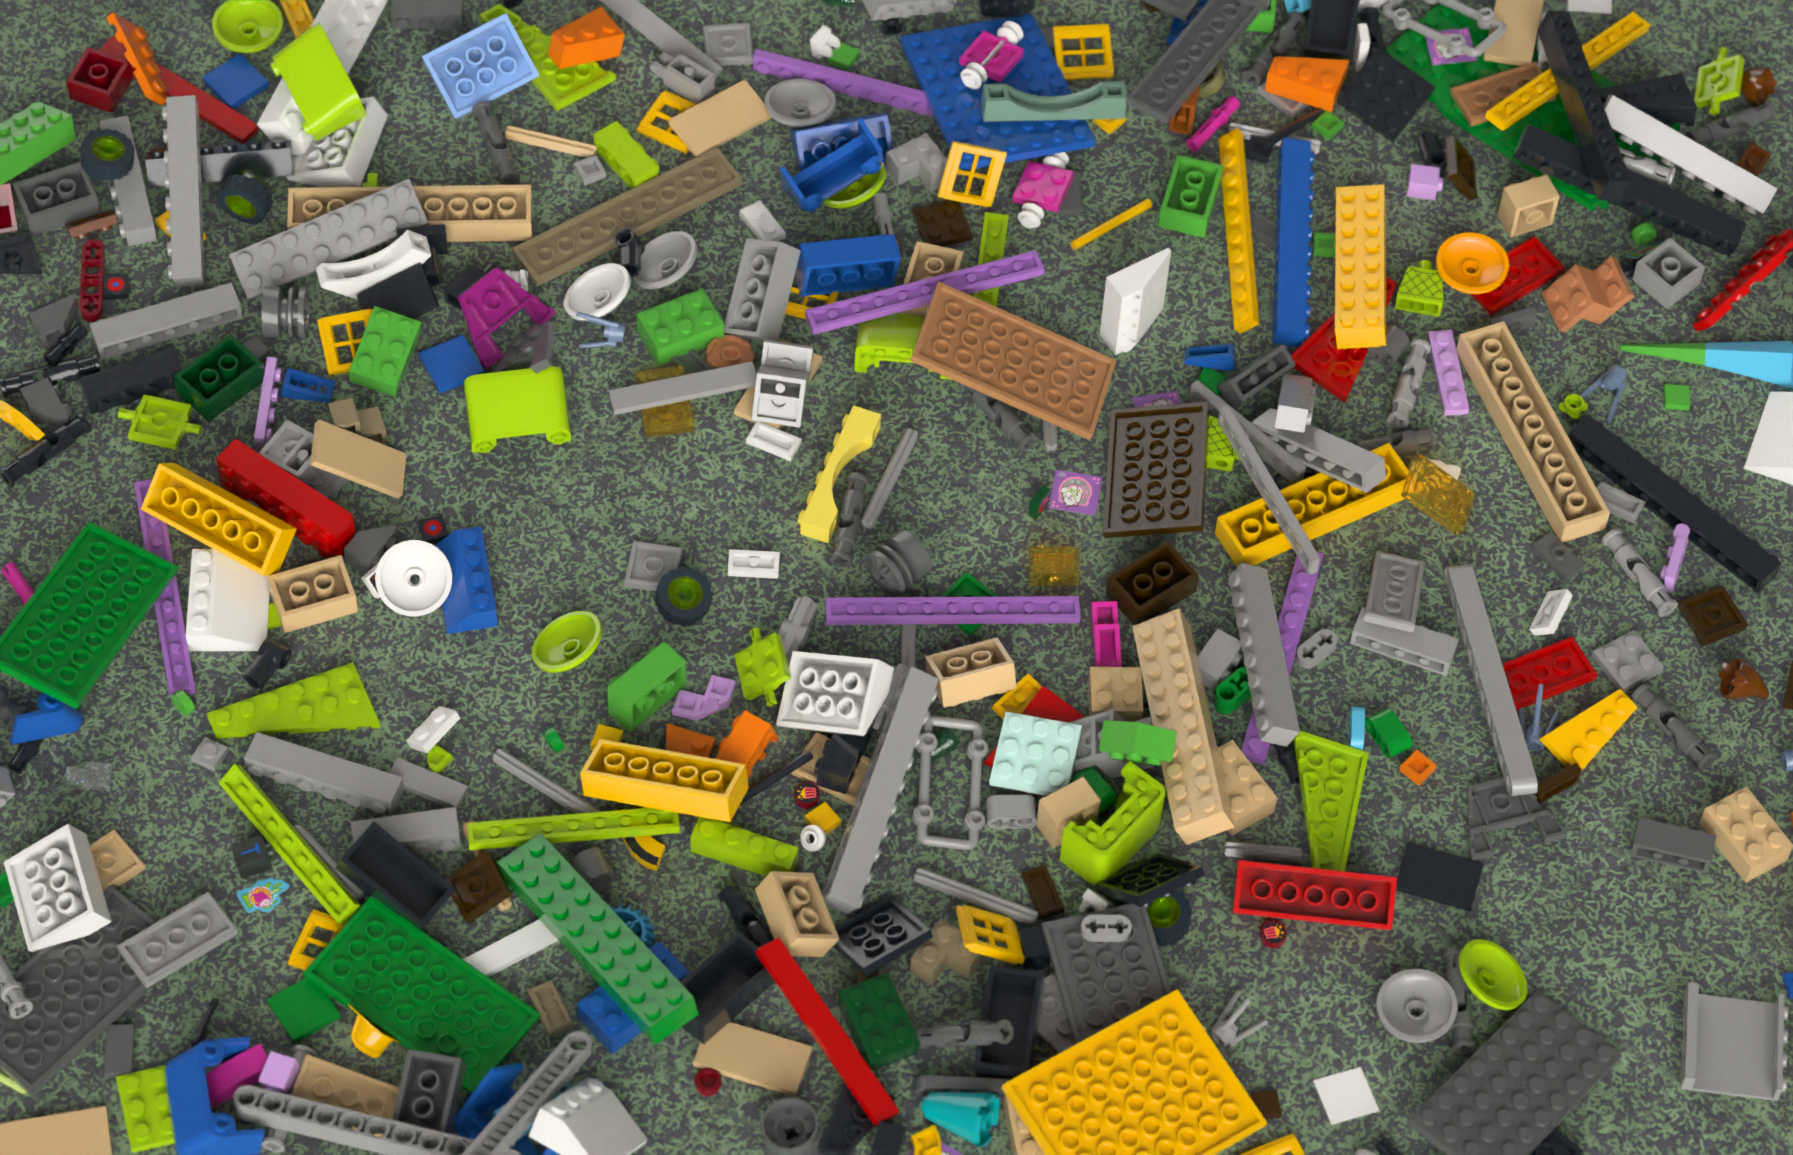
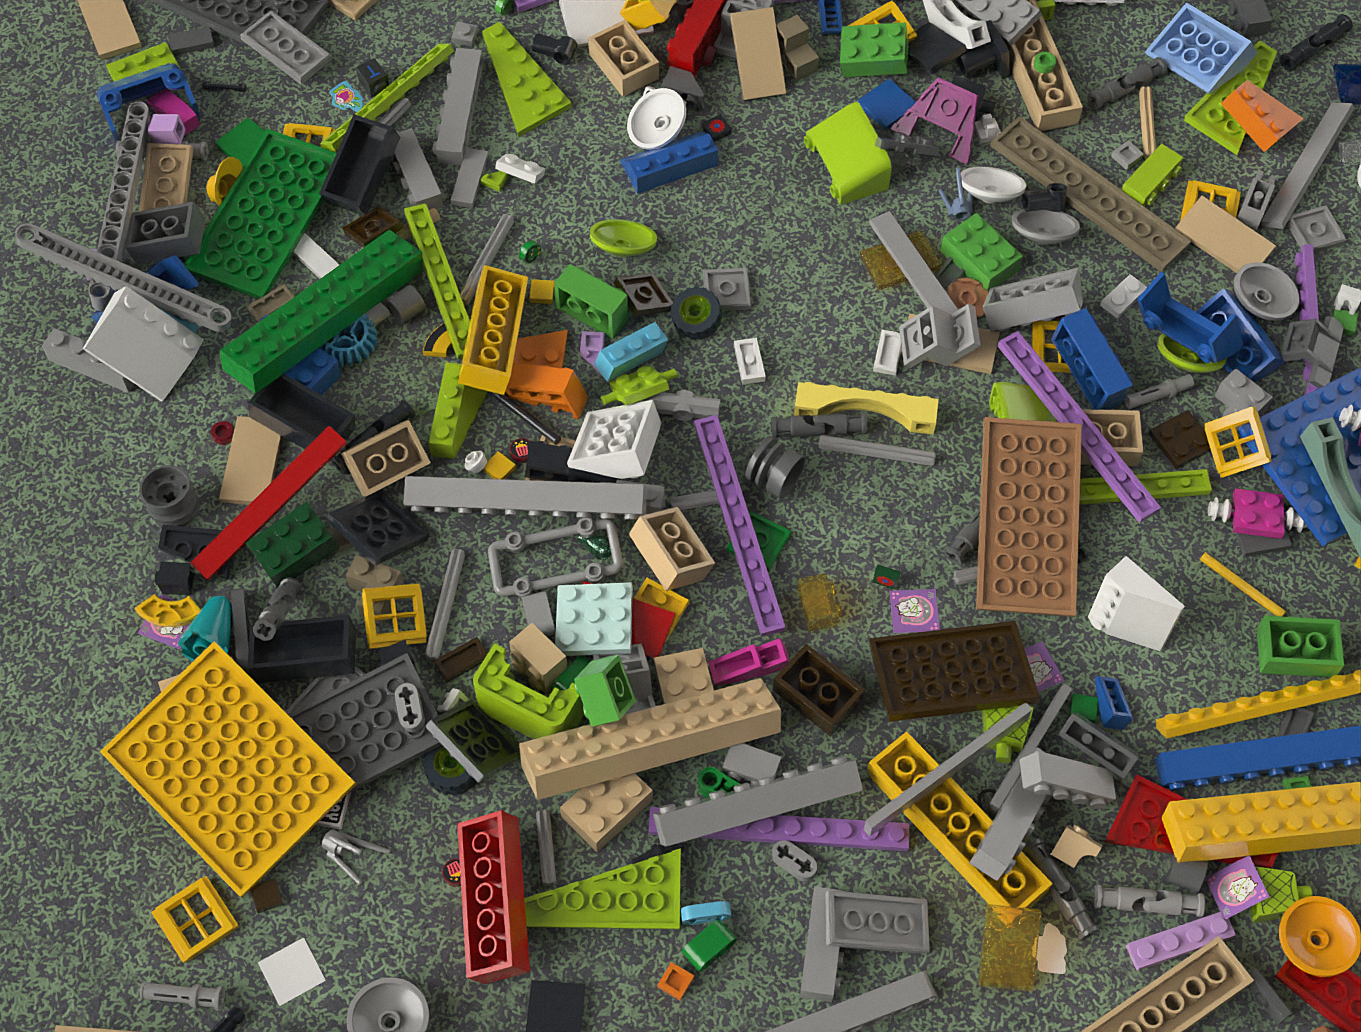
camera: 80 degrees right, 5 degrees up
(463, 200) = (1044, 62): none -> bright green tile
(642, 636) = (644, 294): none -> dark brown plate
(721, 663) = (631, 351): none -> medium azure brick
(875, 85) = (1316, 343): none -> dark grey plate
(1350, 421) = (1075, 844): none -> tan brick
(1413, 311) = (1237, 887): none -> sticker

